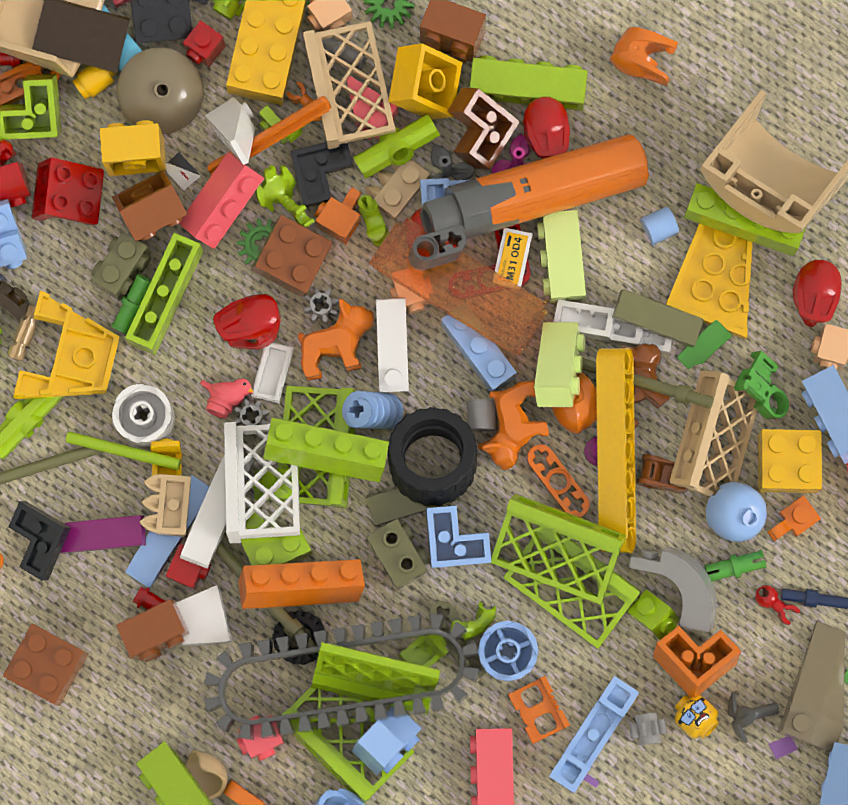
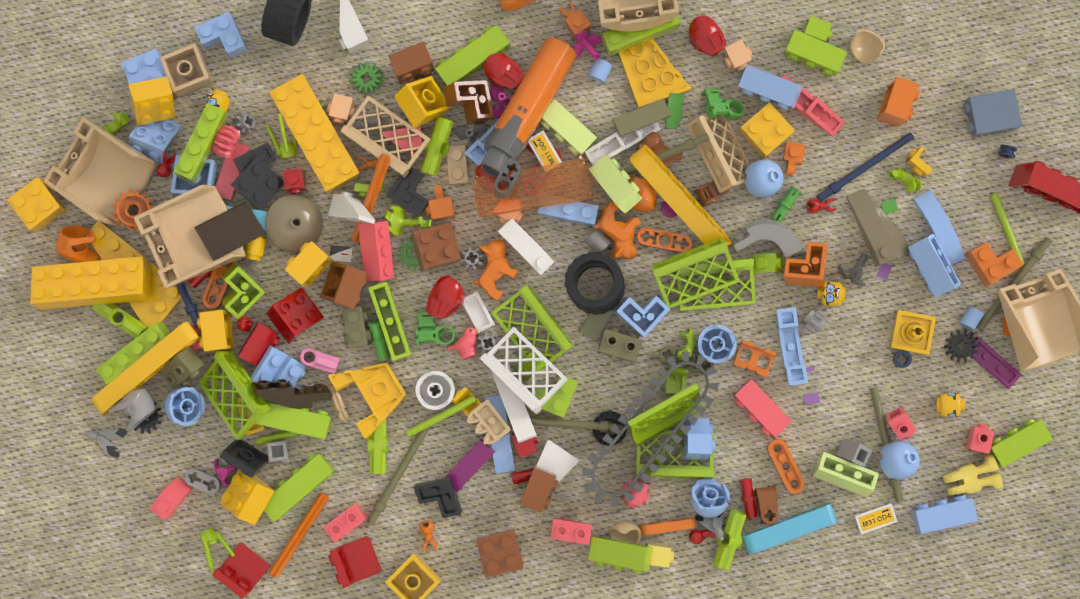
camera: 40 degrees left, 5 degrees up
(48, 269) = (322, 361): none -> bright pink piece
(147, 713) = (571, 531): none -> coral brick
(199, 342) = (431, 333): none -> bright green piece
(301, 584) = (588, 402): orange brick -> none
(326, 450) = (542, 327): lime brick -> none
(372, 410) = (545, 287): light blue piece -> none
(375, 224) = (464, 196): lime piece -> none
(671, 180) = (587, 43): none -> dark pink plant
(681, 146) = (575, 21): none -> orange brick

